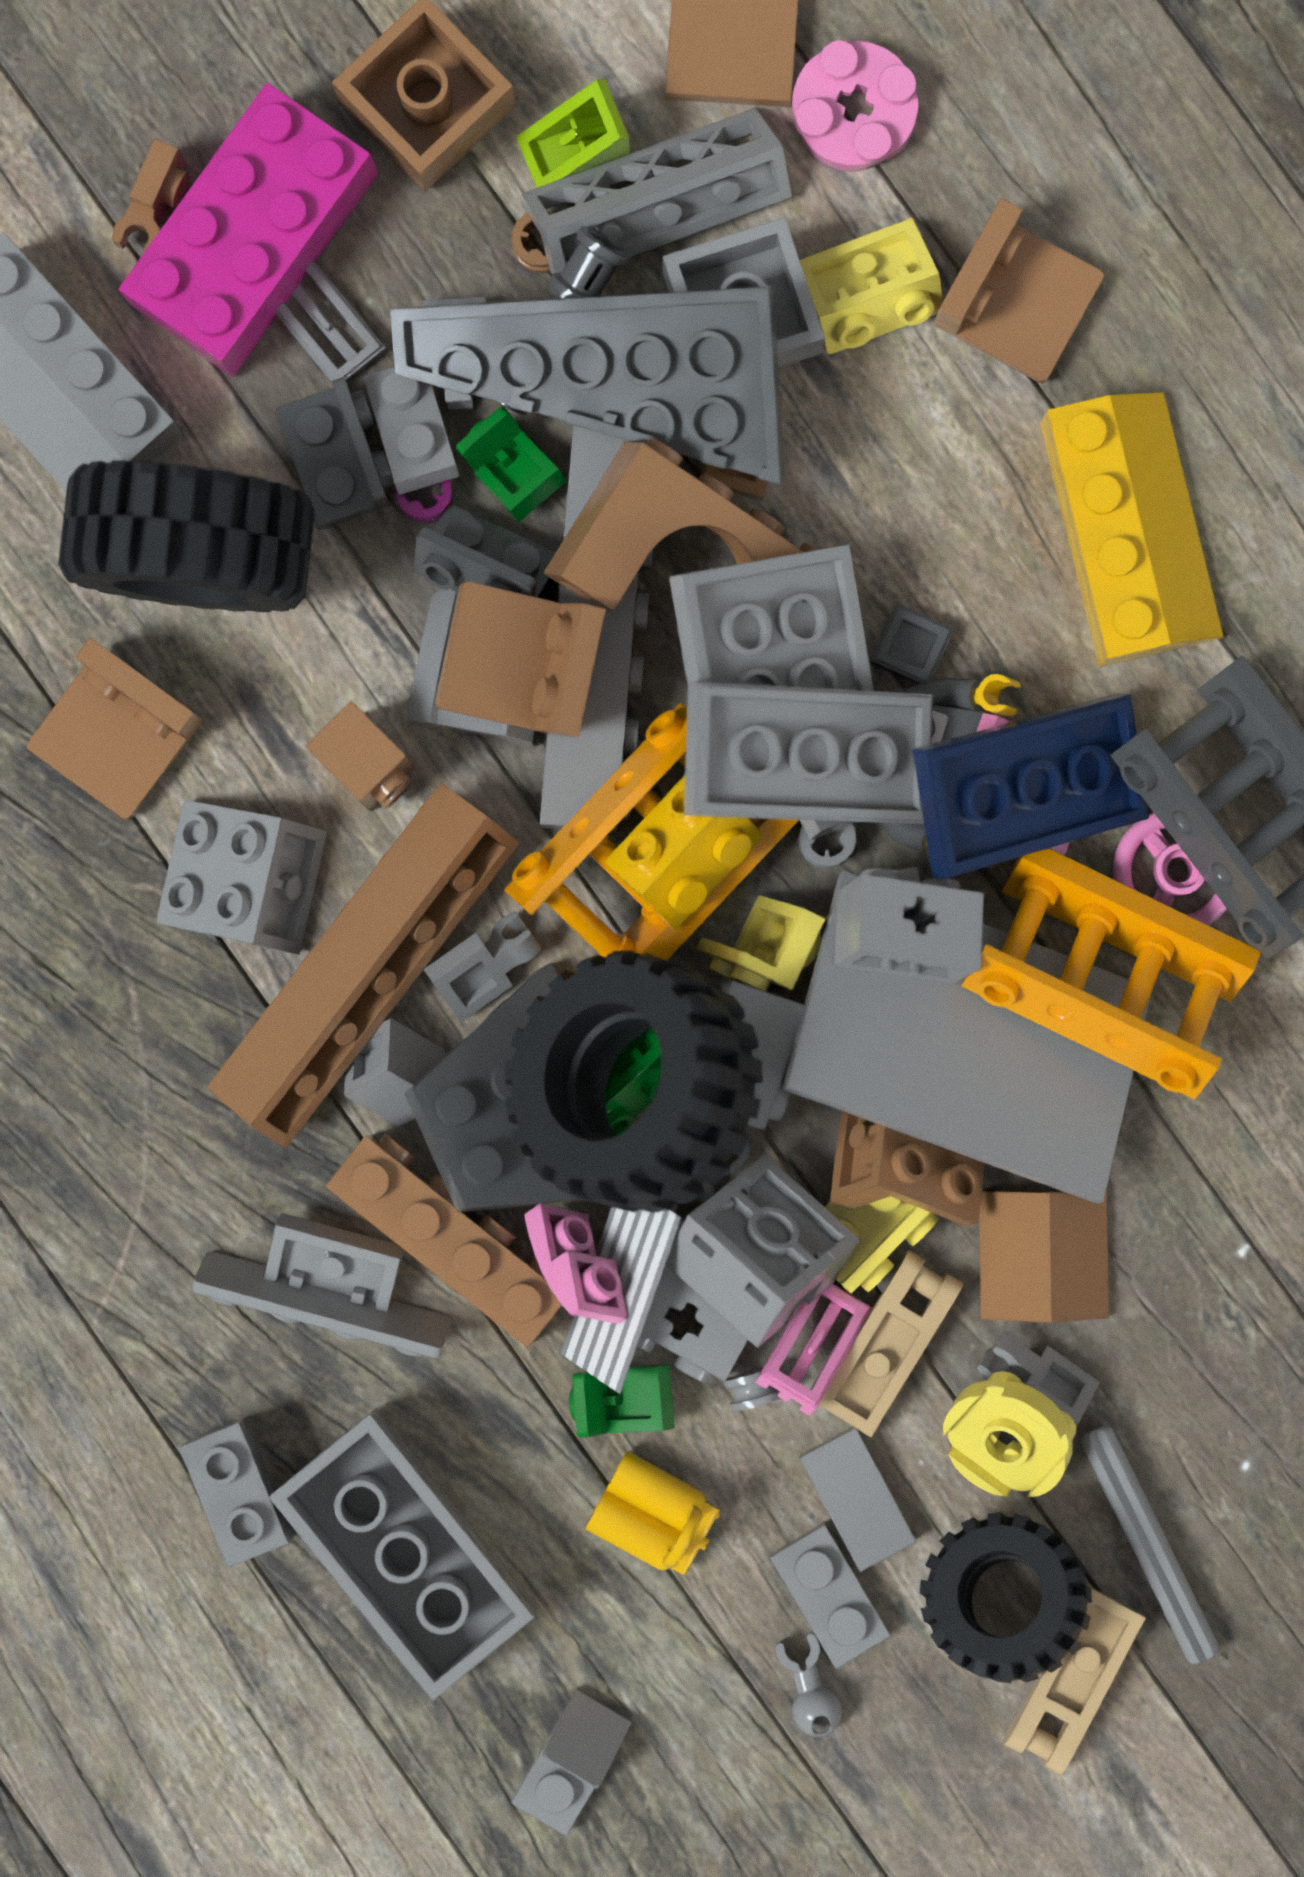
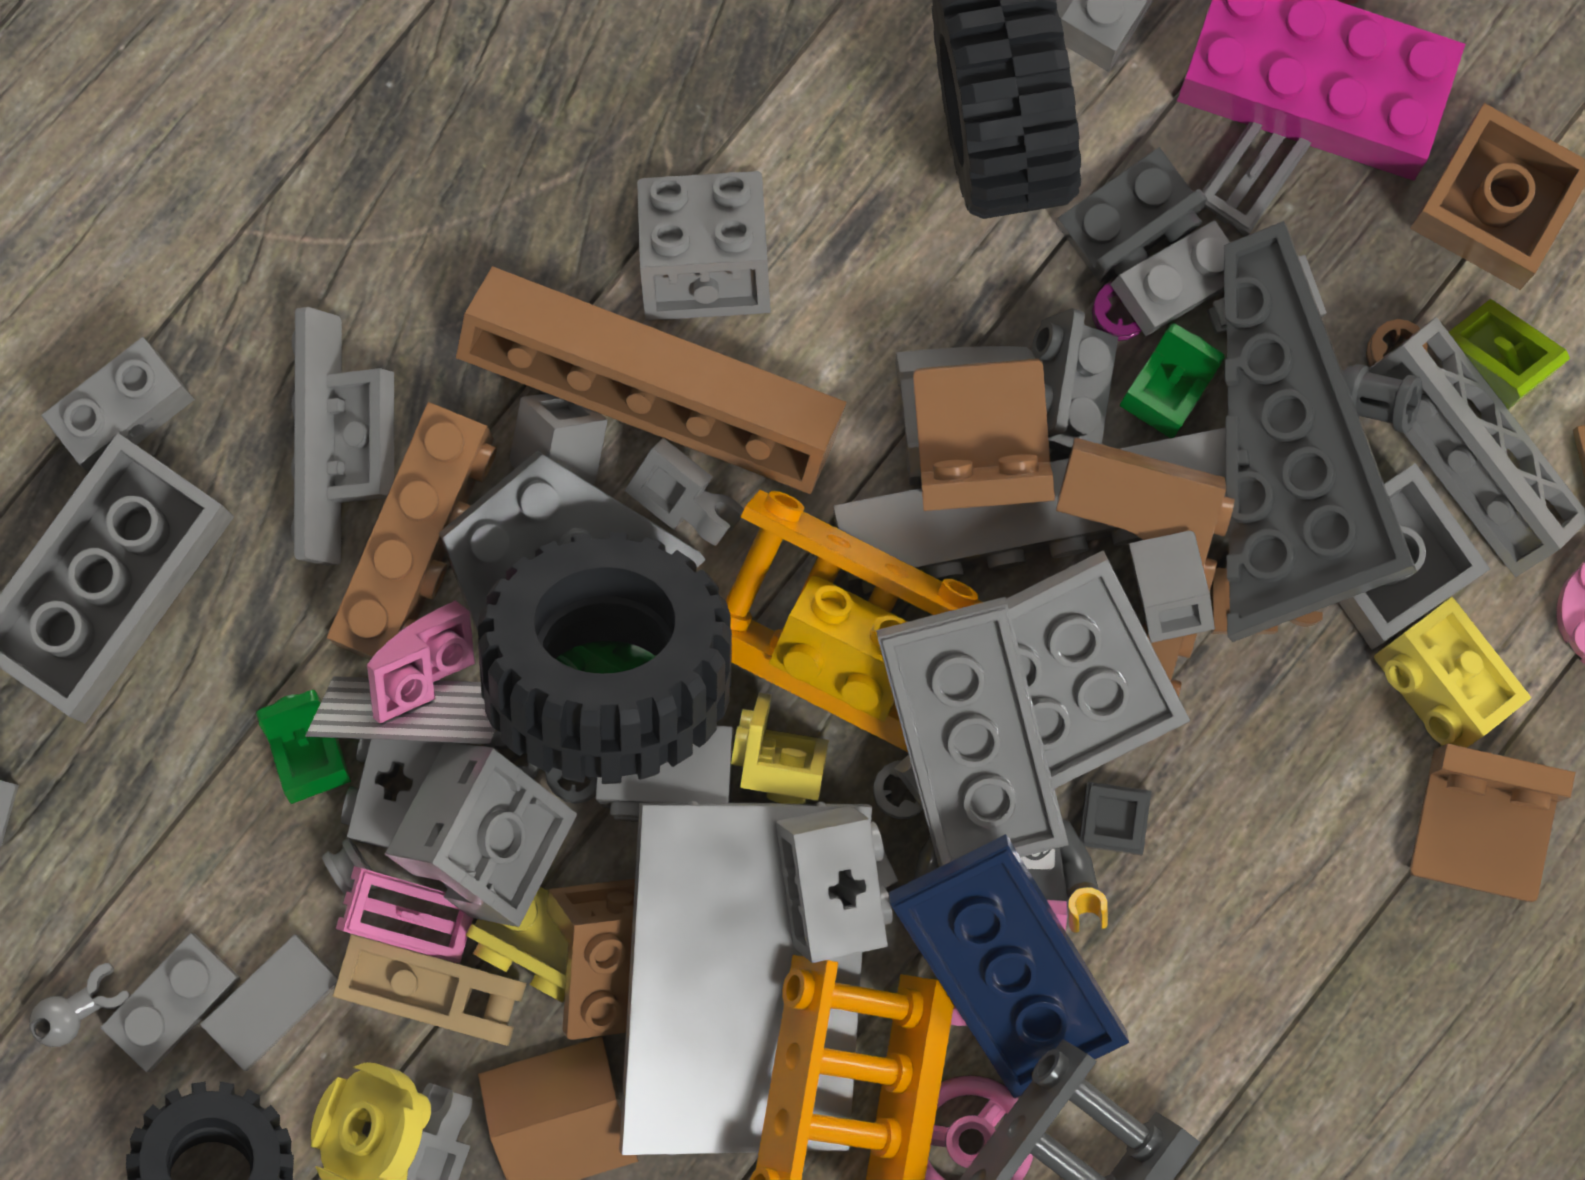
camera: 70 degrees right, 5 degrees down
(113, 731) = (807, 86): medium nougat bracket -> none
(362, 758) = (846, 319): medium nougat brick -> none
(653, 1515) = (201, 809): yellow piece -> none
(718, 522) = (1172, 586): none -> light grey panel
(1130, 526) = (1296, 999): yellow slope -> none

